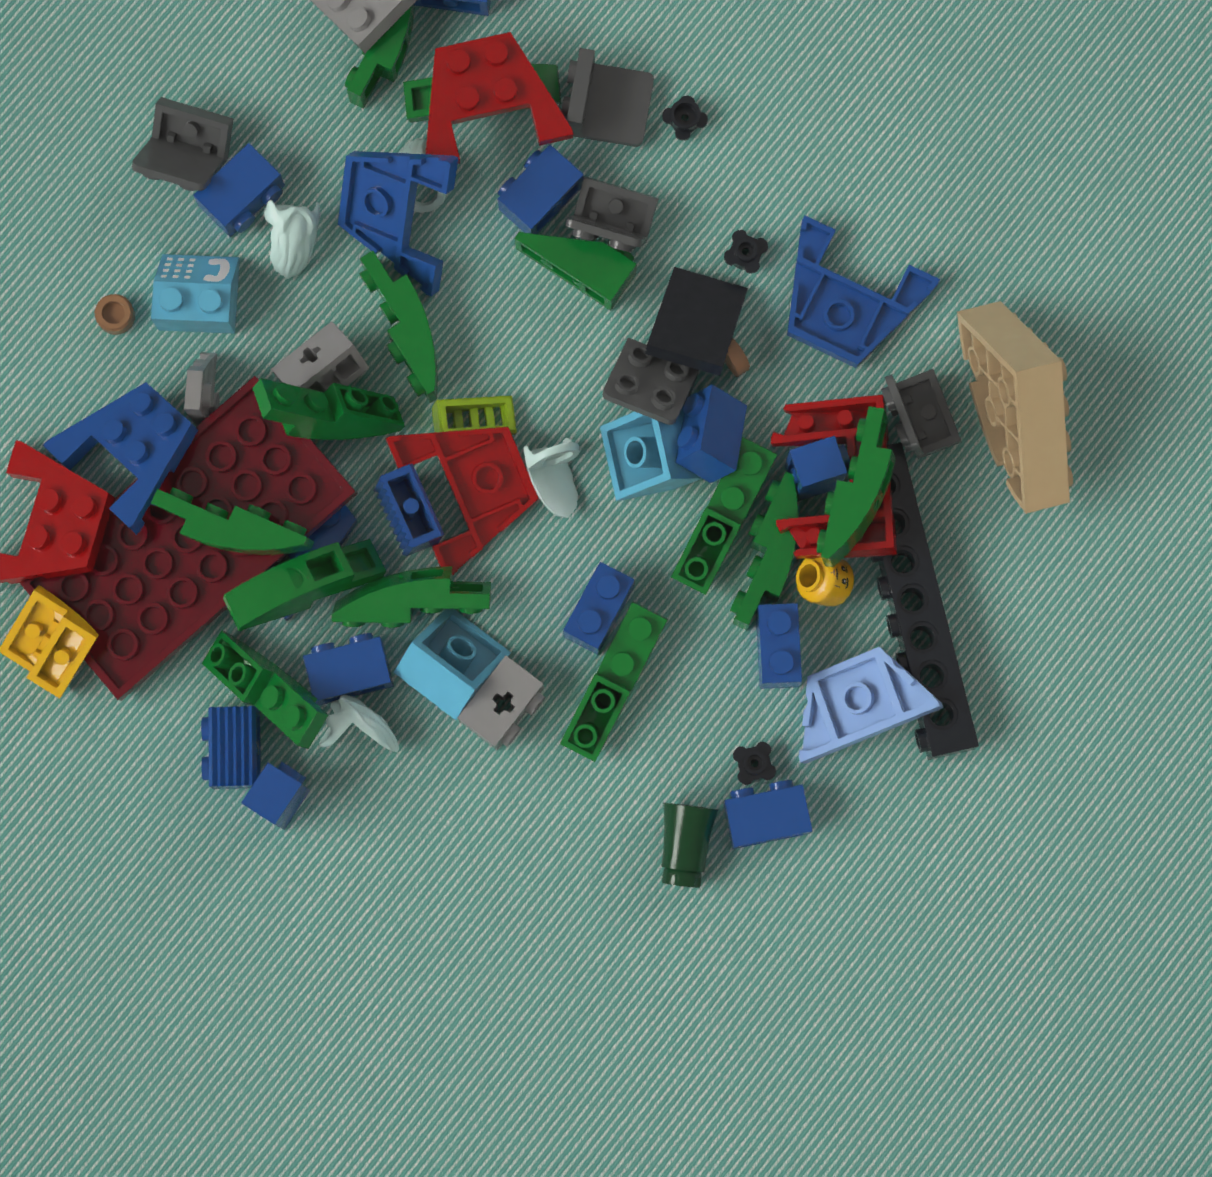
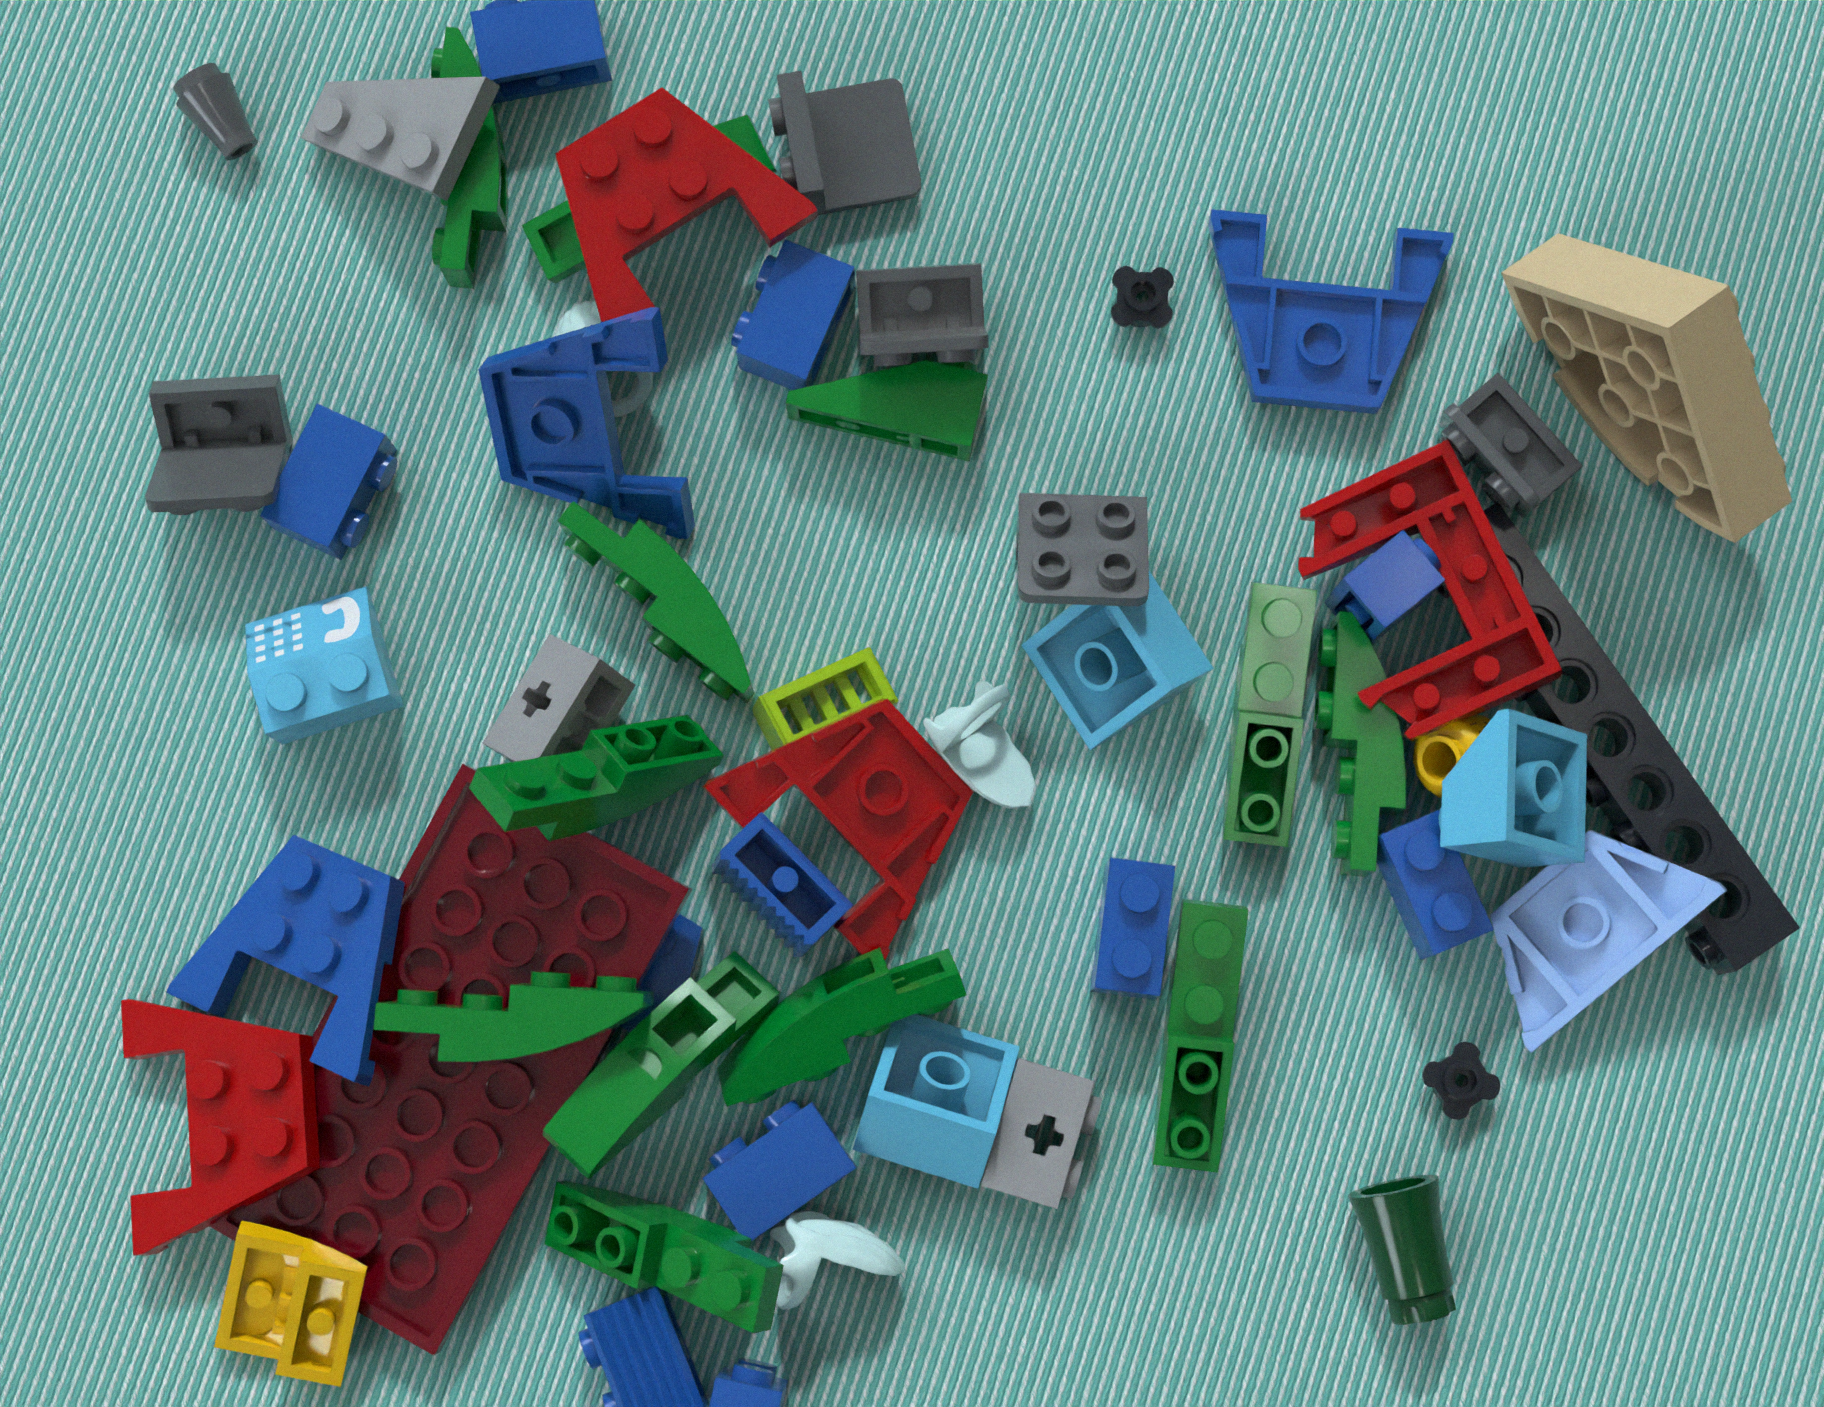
camera: 20 degrees left, 0 degrees up
(114, 314) = (205, 744): medium nougat tile -> none
(200, 385) = (387, 825): light grey wing -> none
(291, 236) = (437, 524): light aqua piece -> none
(688, 107) = (966, 110): black plate -> none
(696, 321) = (1114, 430): black tile -> none
(711, 433) = (1204, 595): blue brick -> none
(736, 359) = (1187, 463): medium nougat tile -> none
(767, 815) = (1514, 1156): blue brick -> none
(844, 609) = (1518, 794): none -> medium azure slope
(856, 503) = (1478, 623): green slope -> none

